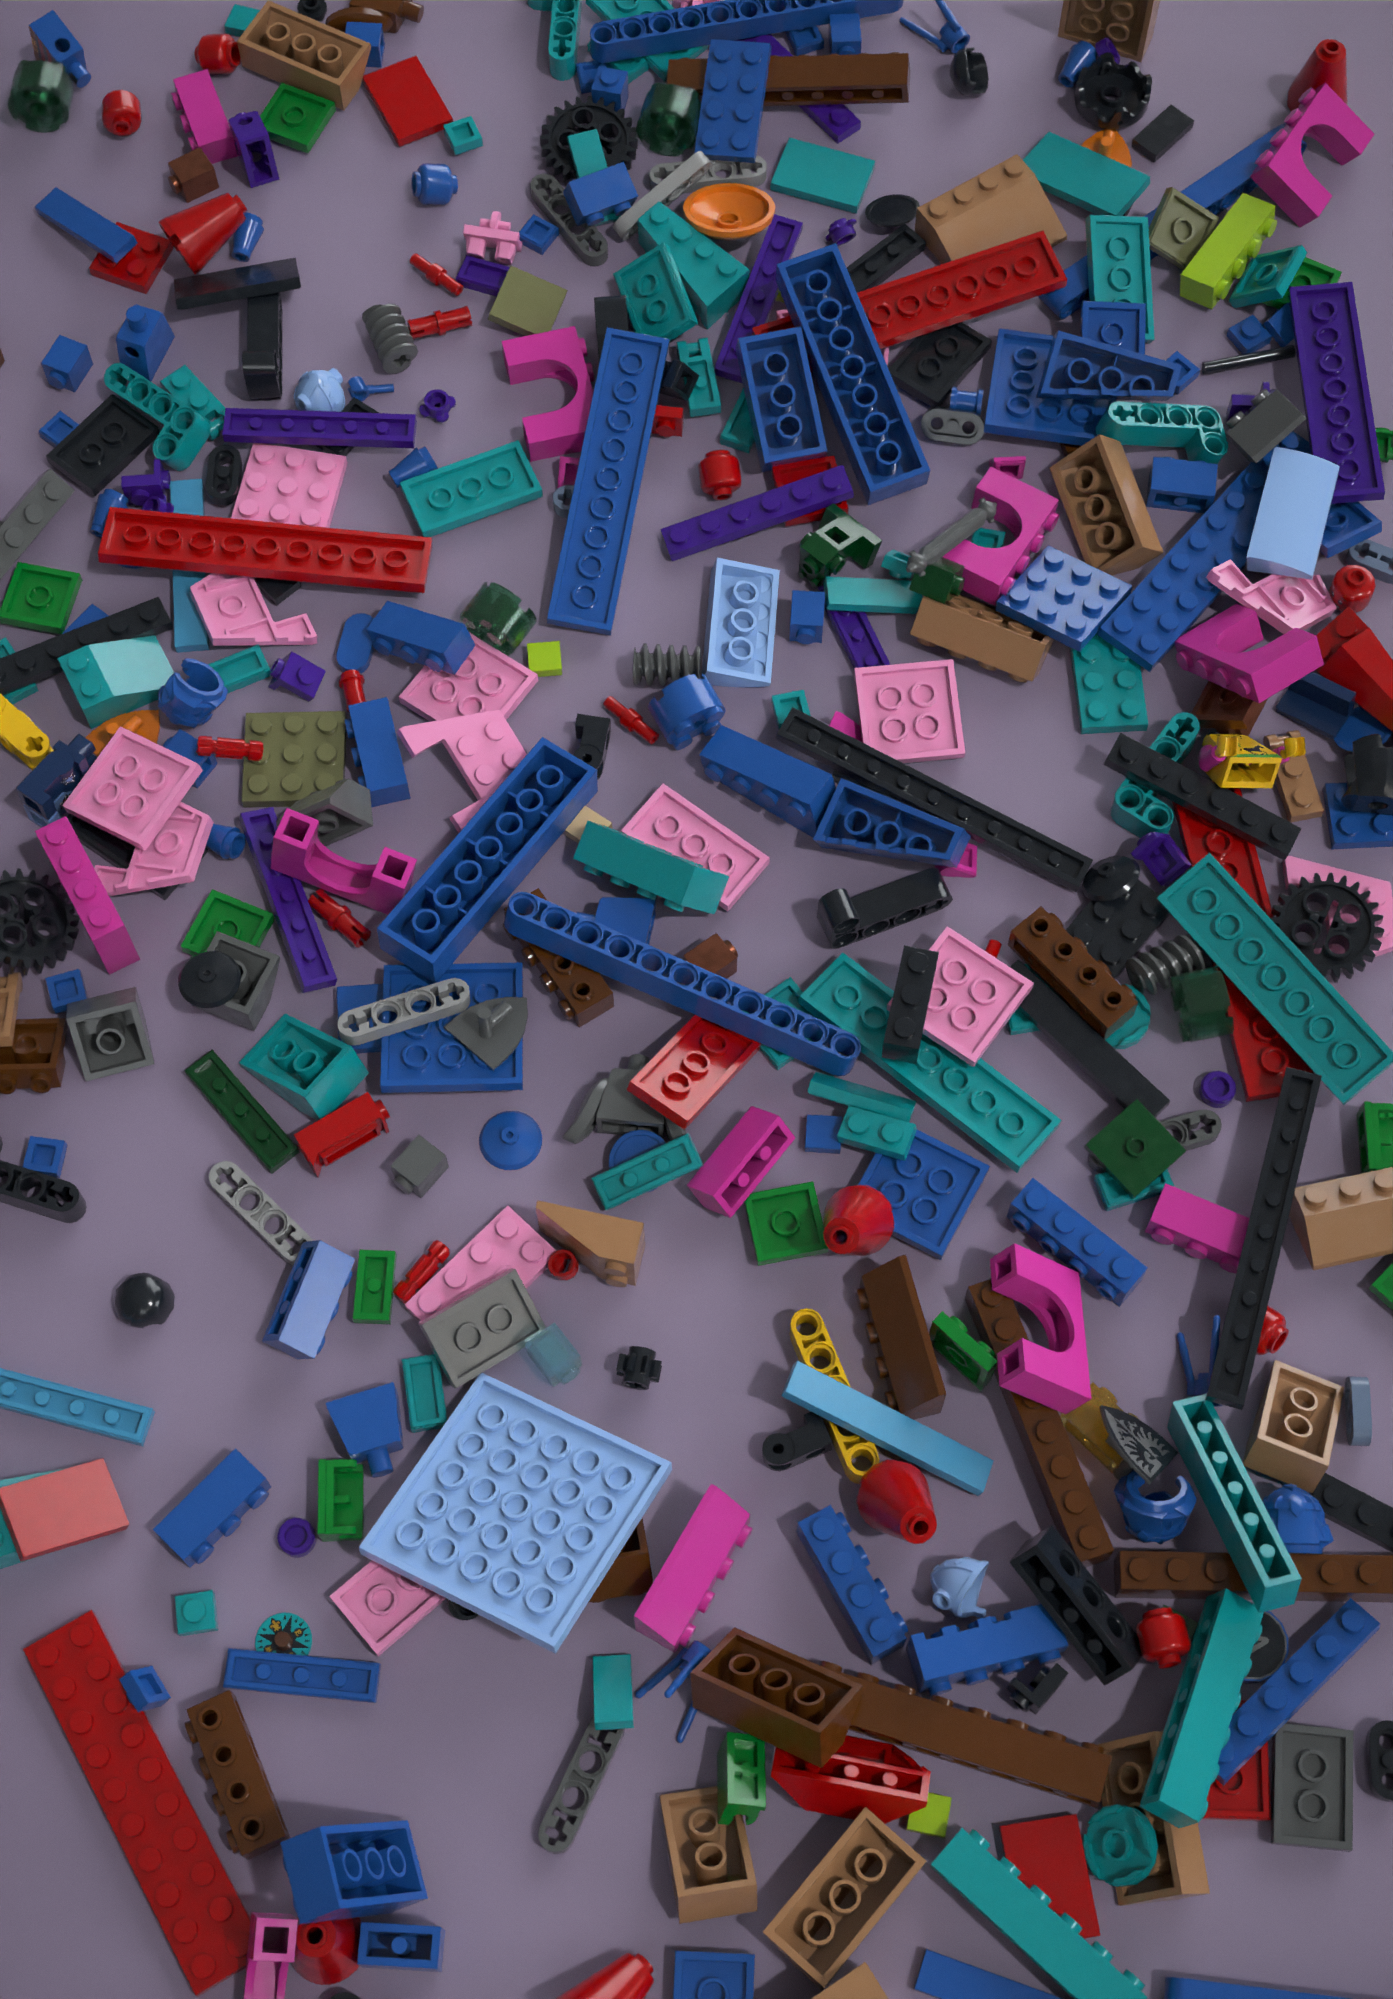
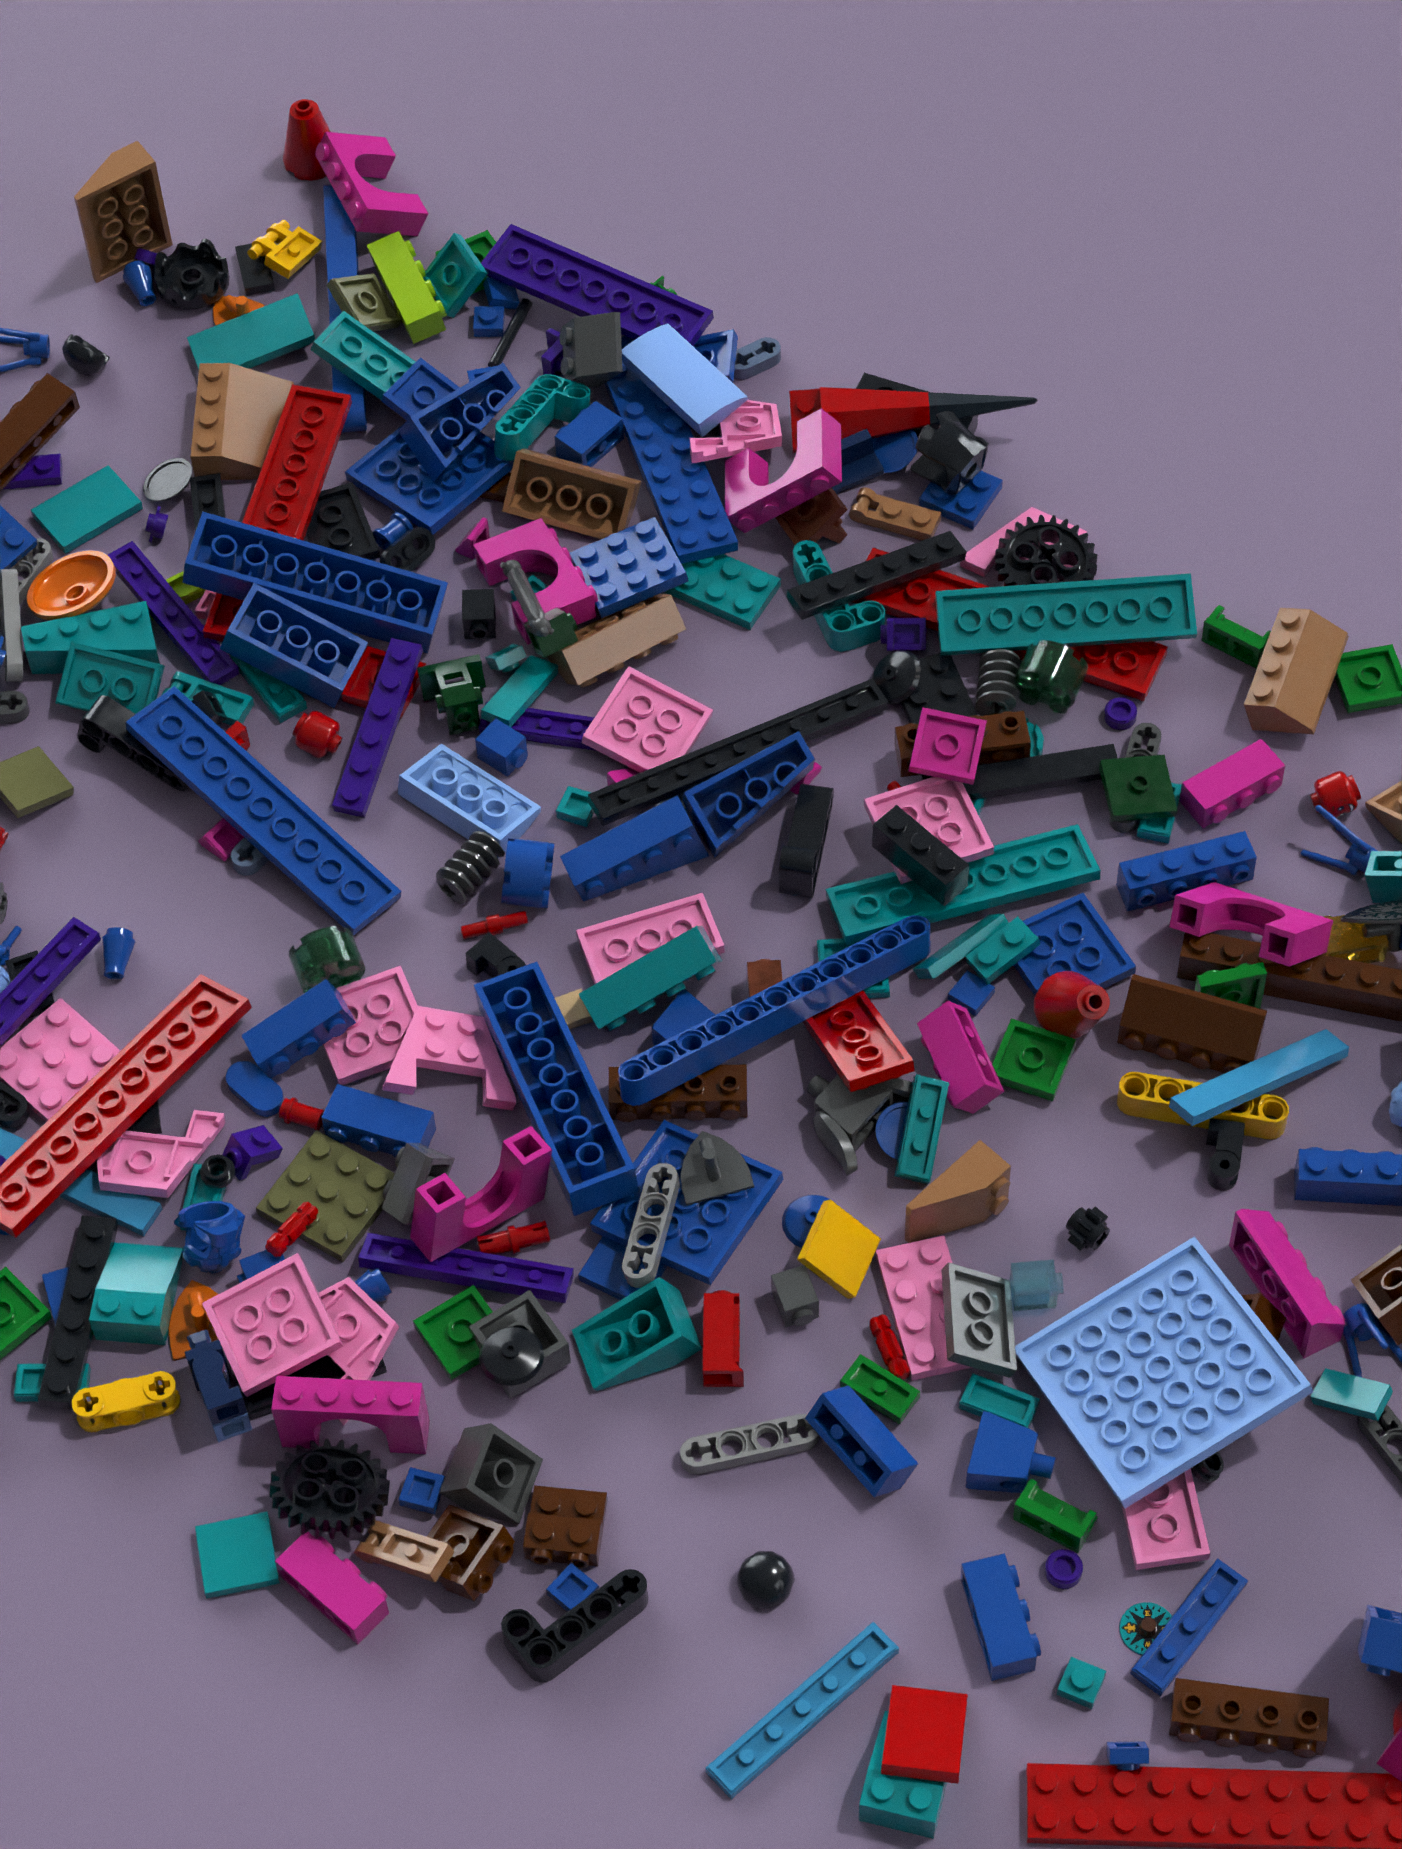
camera: 55 degrees left, 10 degrees down
(100, 1117) = (565, 1526): none -> reddish brown plate
(242, 1111) = (640, 1411): dark green tile -> none
(255, 656) = (217, 1163): none -> black plate
(437, 398) = (64, 896): dark purple plate -> none
(471, 489) = (175, 921): teal plate -> none
(482, 1174) = (839, 1249): none -> yellow tile
(545, 658) = (384, 955): lime tile -> none
(557, 356) = (106, 782): dark pink arch -> none
(558, 1262) = (964, 1231): red hinge -> none
(897, 1501) = (1330, 1100): red cone -> none
(929, 516) = (479, 614): none -> black brick
(1044, 959) = (947, 746): none -> dark pink plate
(1196, 147) = (292, 251): none -> yellow plate
(1243, 762) = (866, 533): torso -> none
(1263, 1239) = (1274, 742): black plate -> none
(1352, 587) = (770, 383): red head -> none

